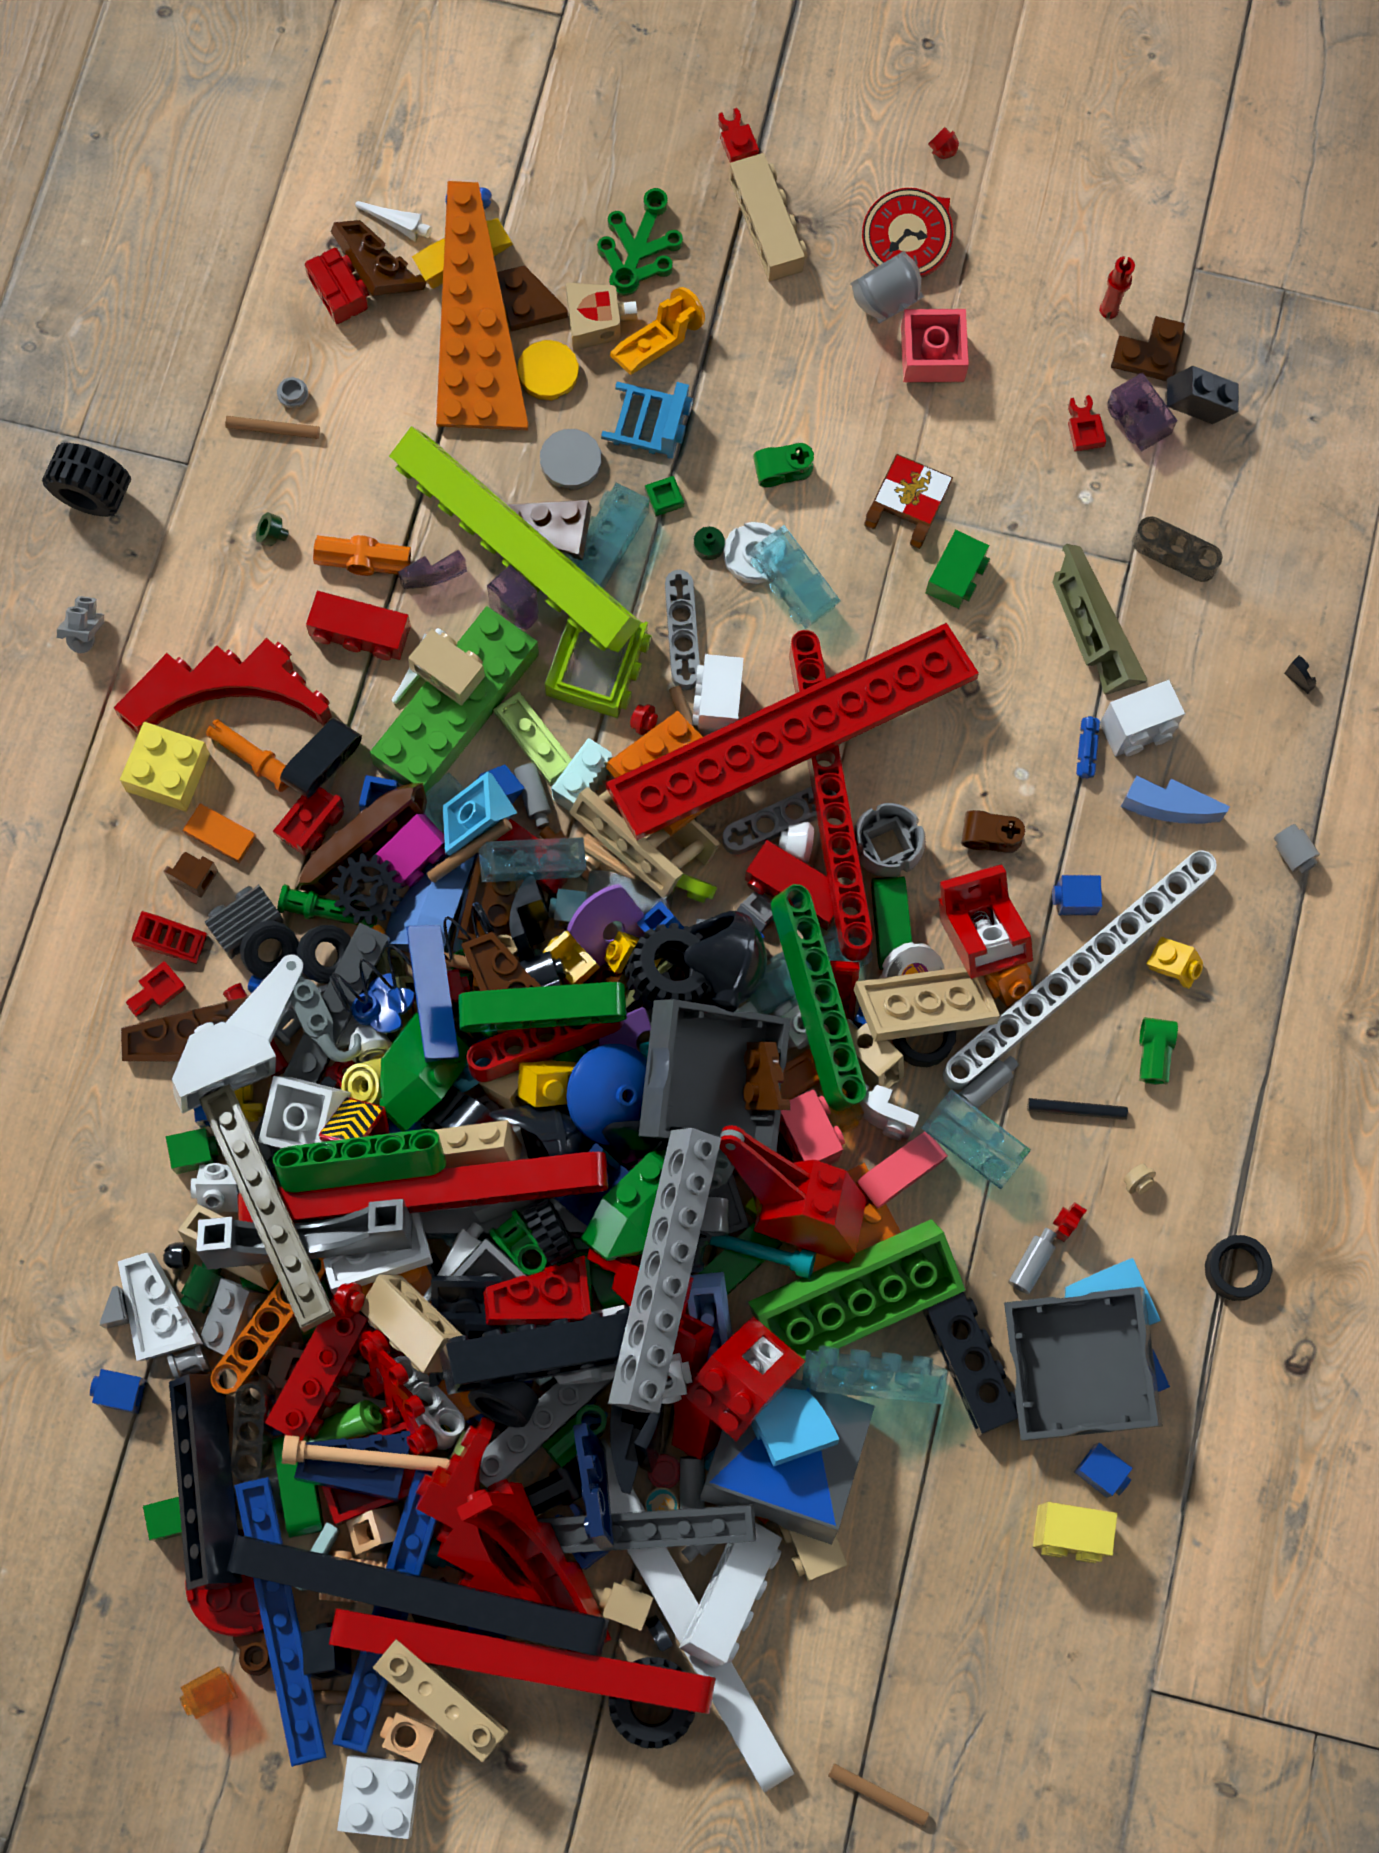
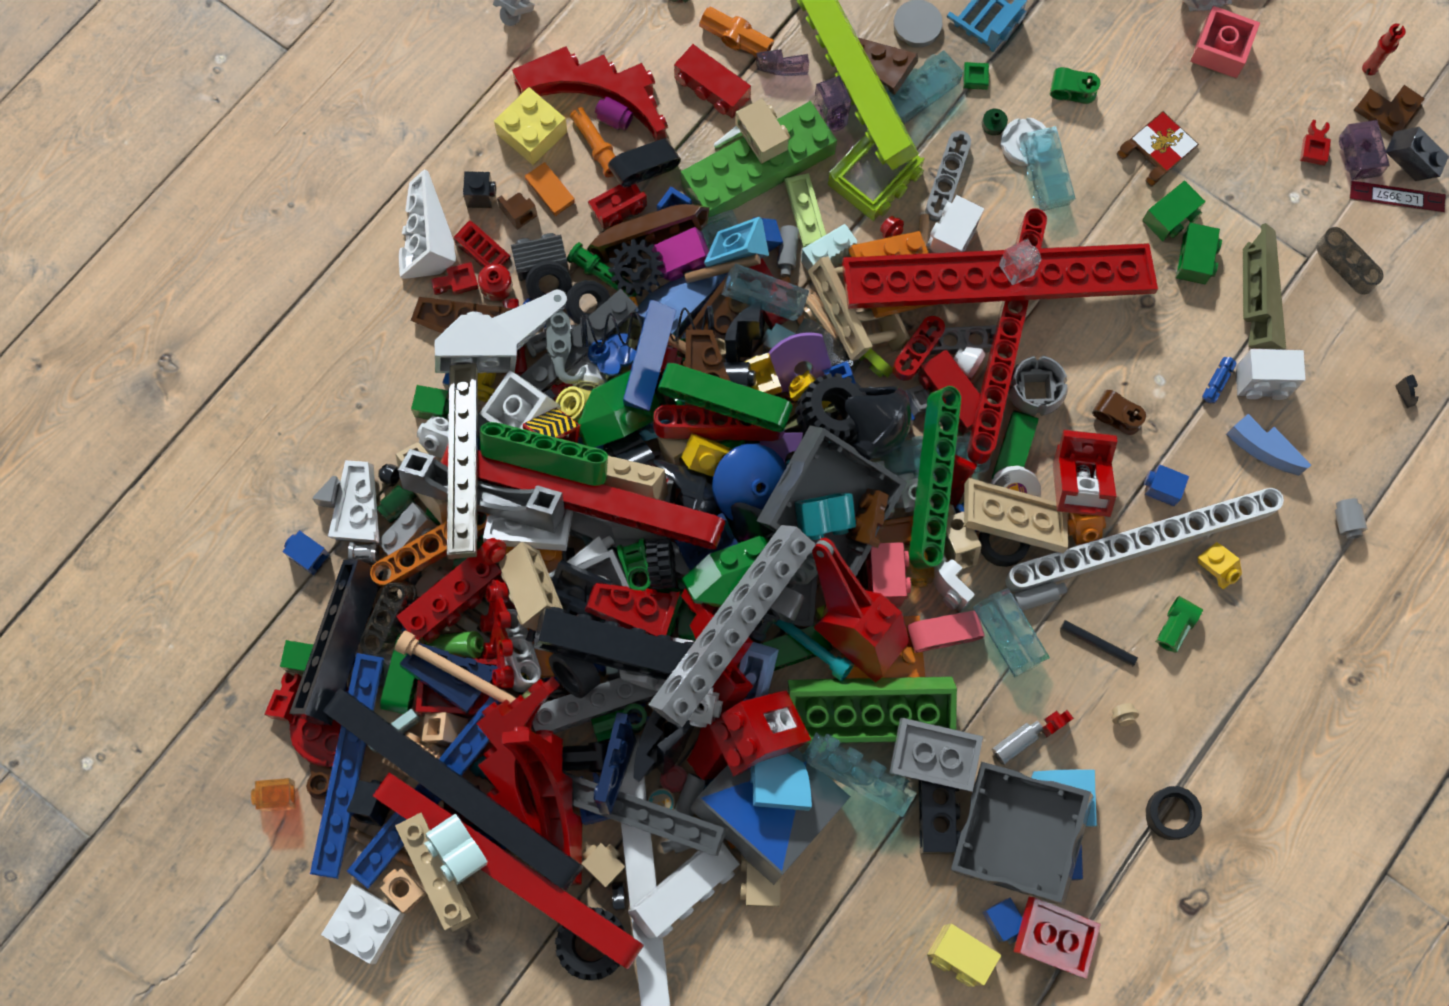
camera: 25 degrees right, 0 degrees up
(100, 954) = (428, 237): none -> white wedge
(136, 869) = (478, 189): none -> black brick
(170, 1577) = (283, 699): none -> red plate
(211, 981) = (495, 282): none -> red head
(258, 711) = (613, 114): none -> magenta brick
(455, 1664) = (455, 849): none -> light aqua brick
(714, 1095) = (825, 515): none -> teal brick
(722, 869) = (918, 337): none -> red beam
(811, 706) = (1020, 261): none -> clear brick
(951, 1317) = (936, 754): none -> light grey plate
(1005, 608) = (1198, 253): none -> green brick
(1169, 1465) = (1057, 937): none -> plate
(1199, 450) = (1397, 196): none -> sticker

